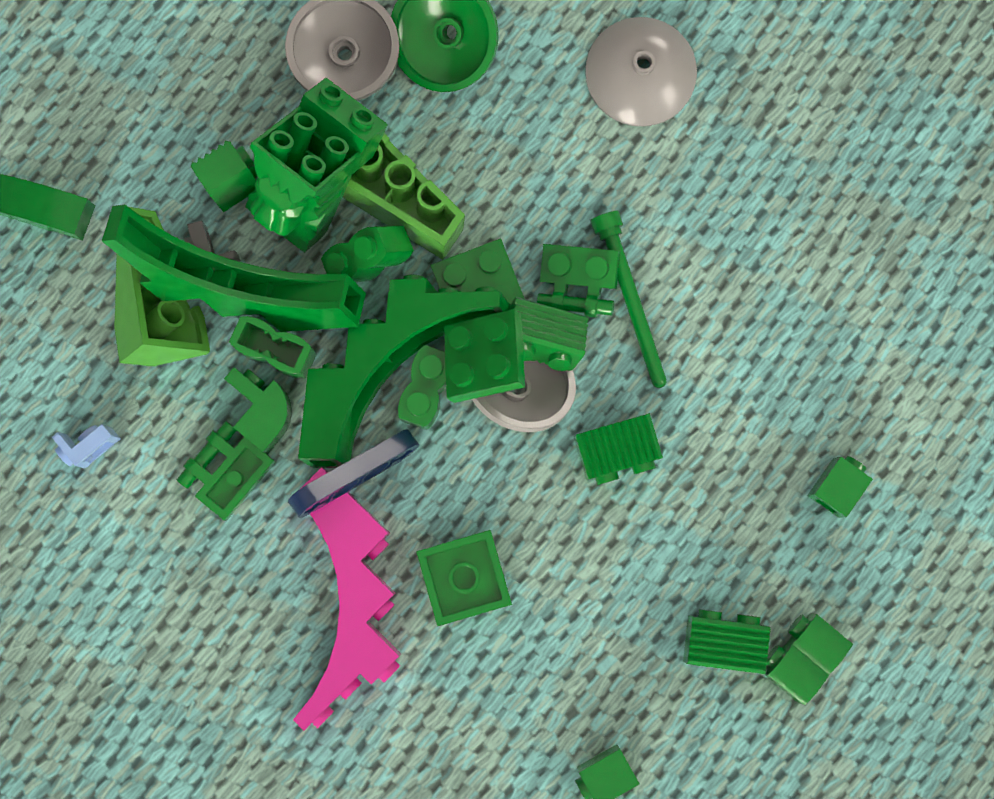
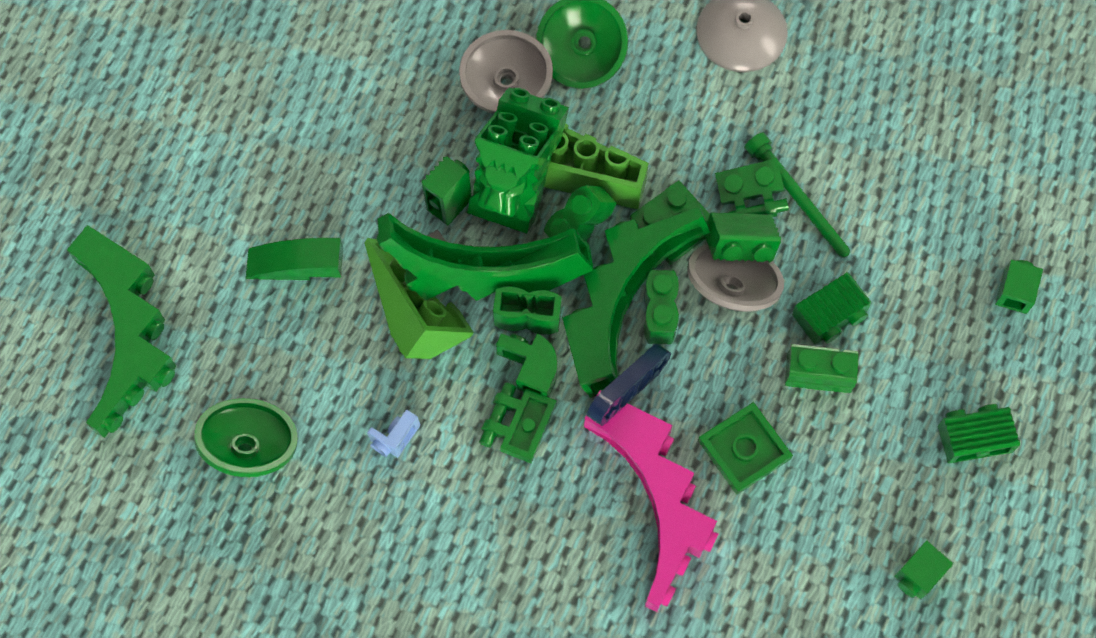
camera: 15 degrees left, 15 degrees down
(484, 356) = (704, 259): green plate -> none
(580, 515) = (821, 368): none -> green brick
(806, 657) = (1047, 426): green brick -> none

